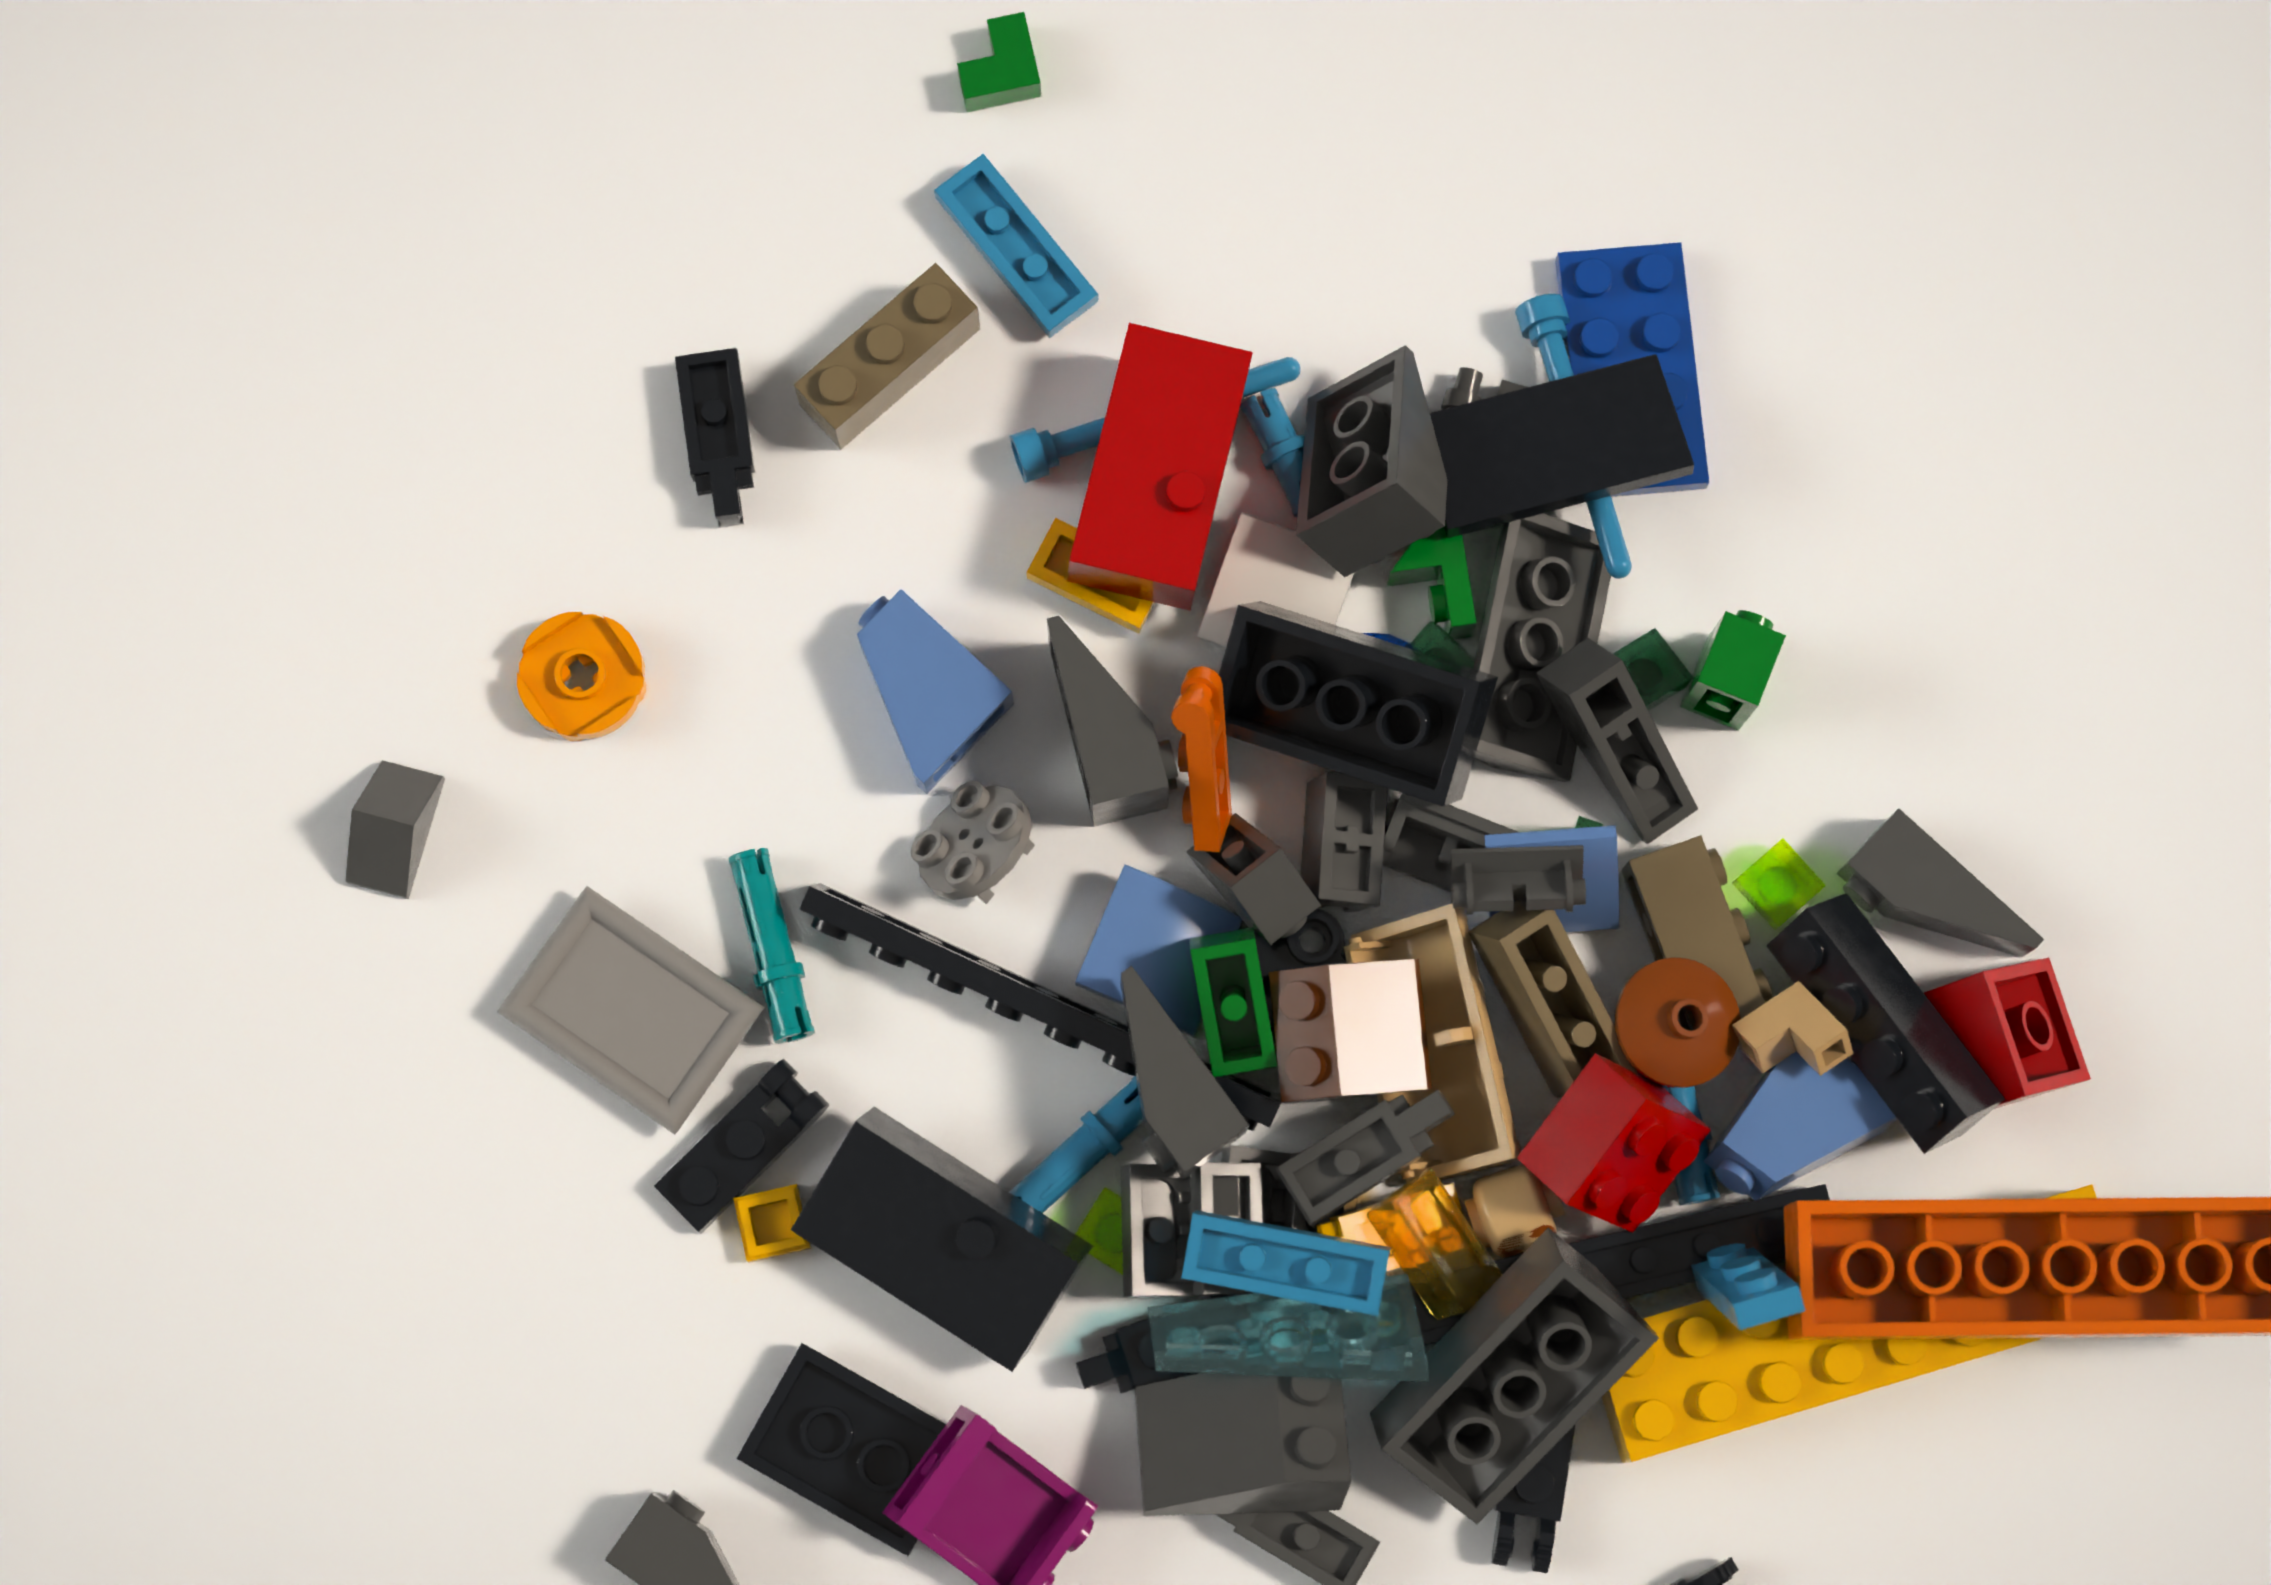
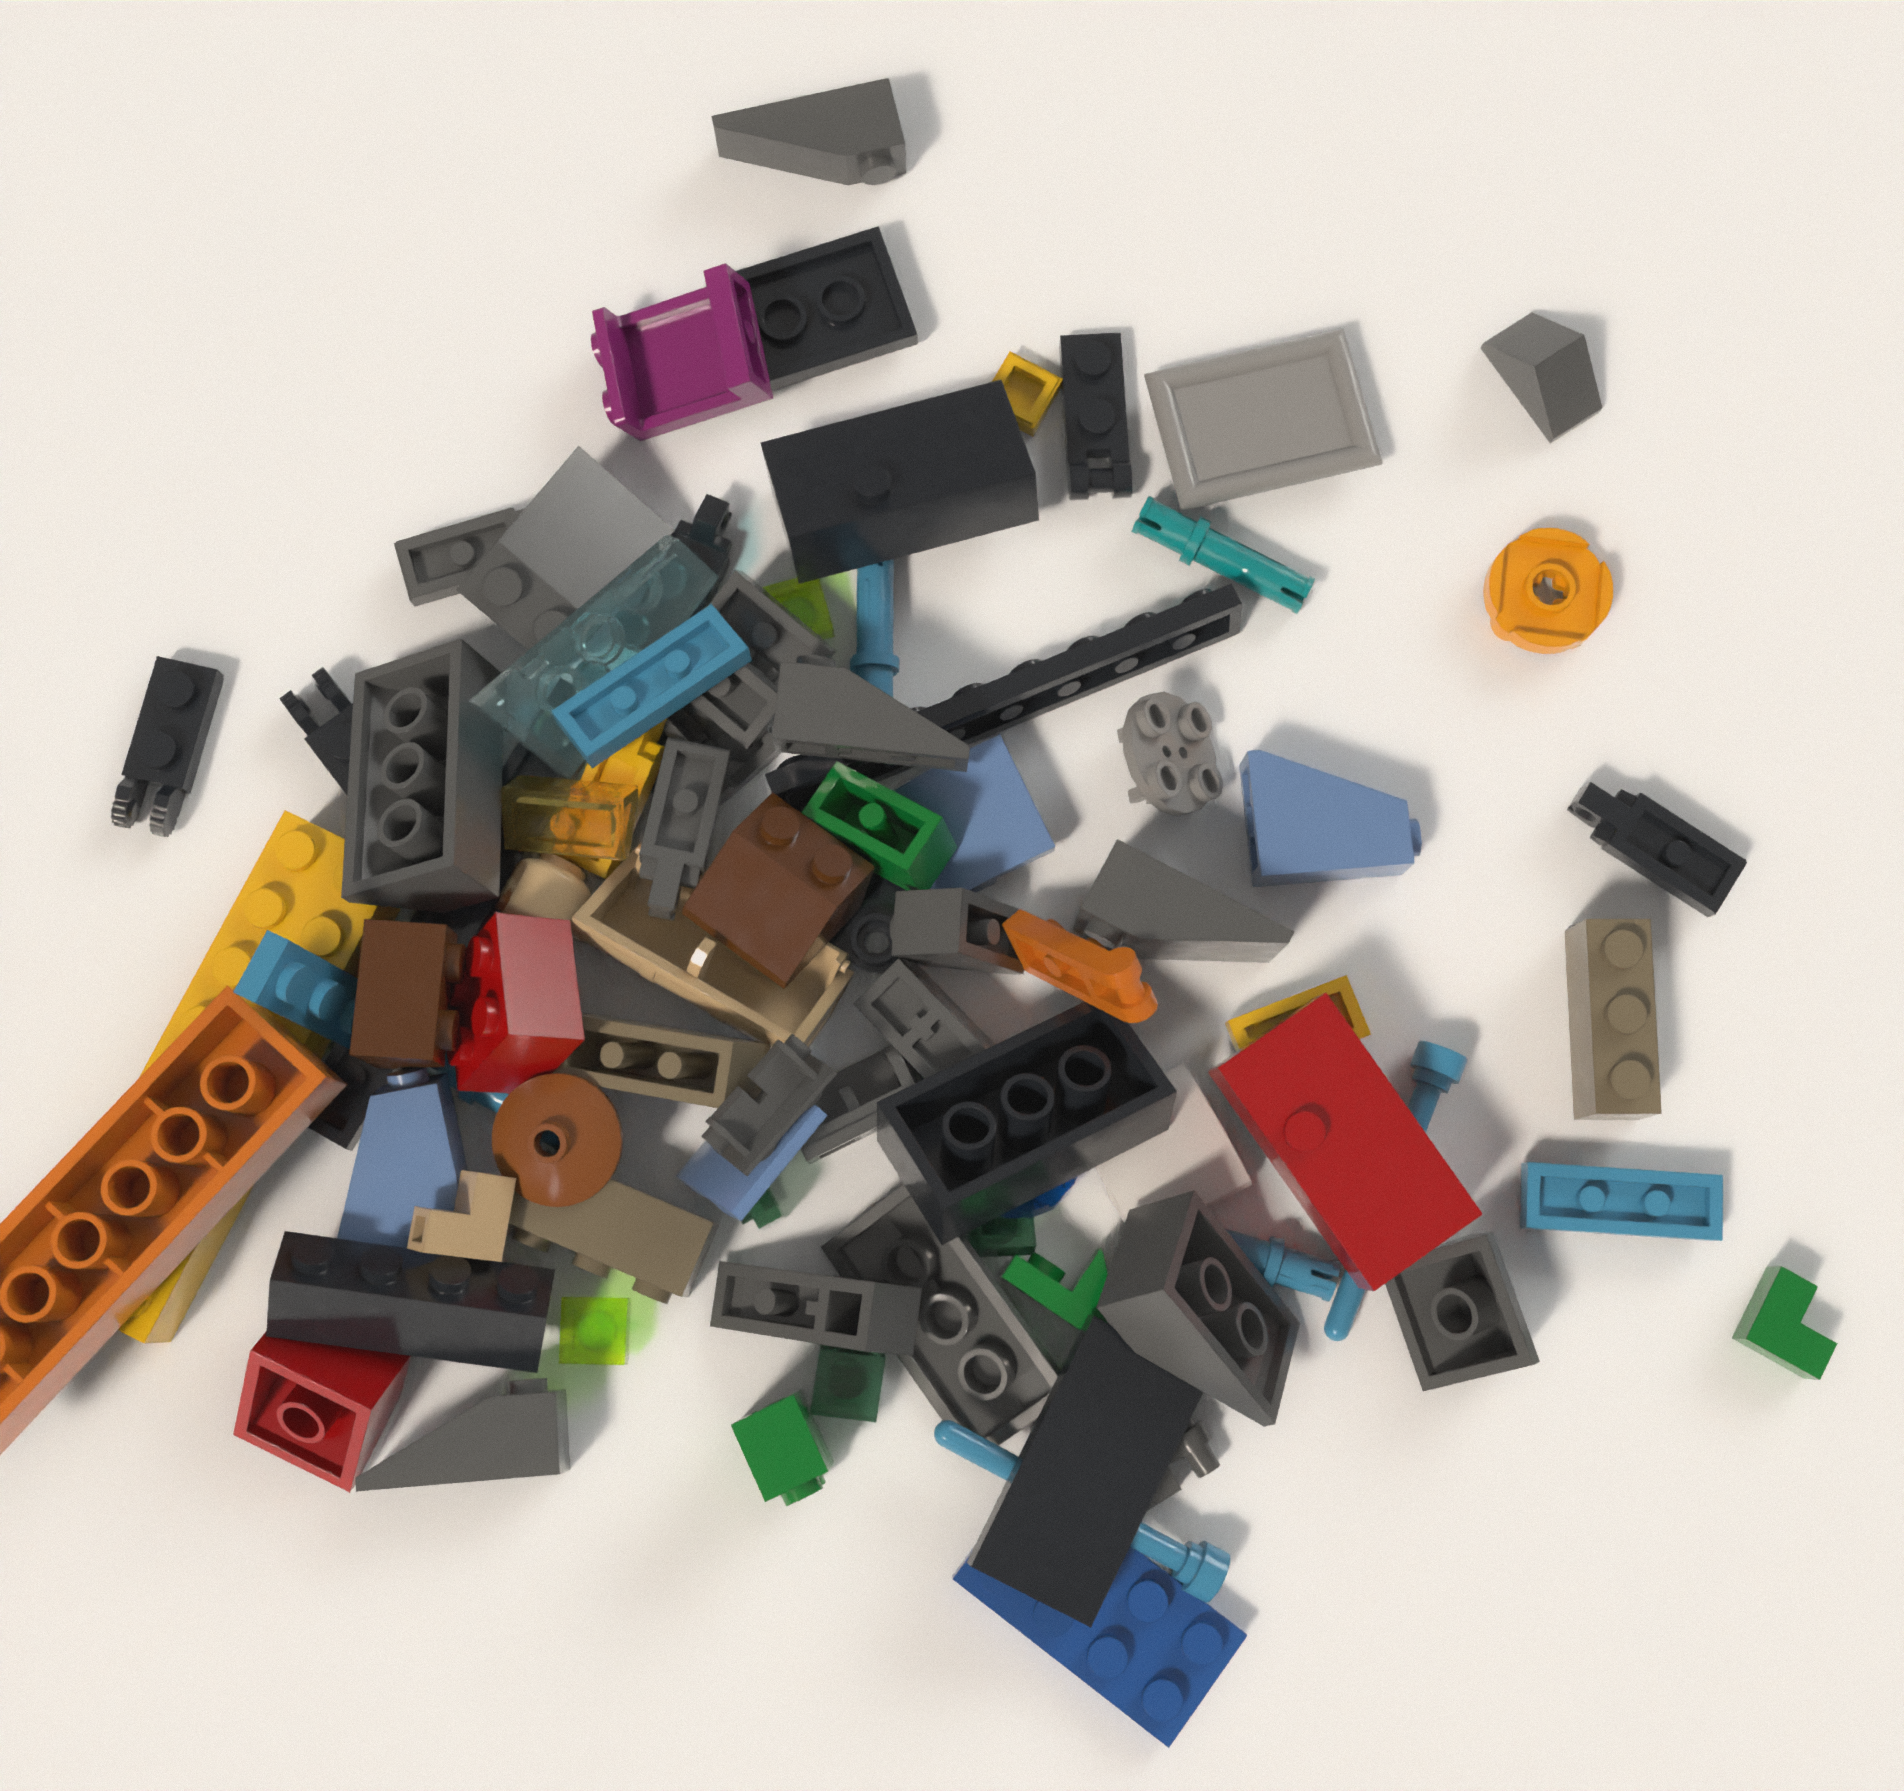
camera: 130 degrees right, 0 degrees up
(1204, 283) = (1461, 1313): none -> dark grey slope
(1680, 1217) = (406, 994): none -> reddish brown slope

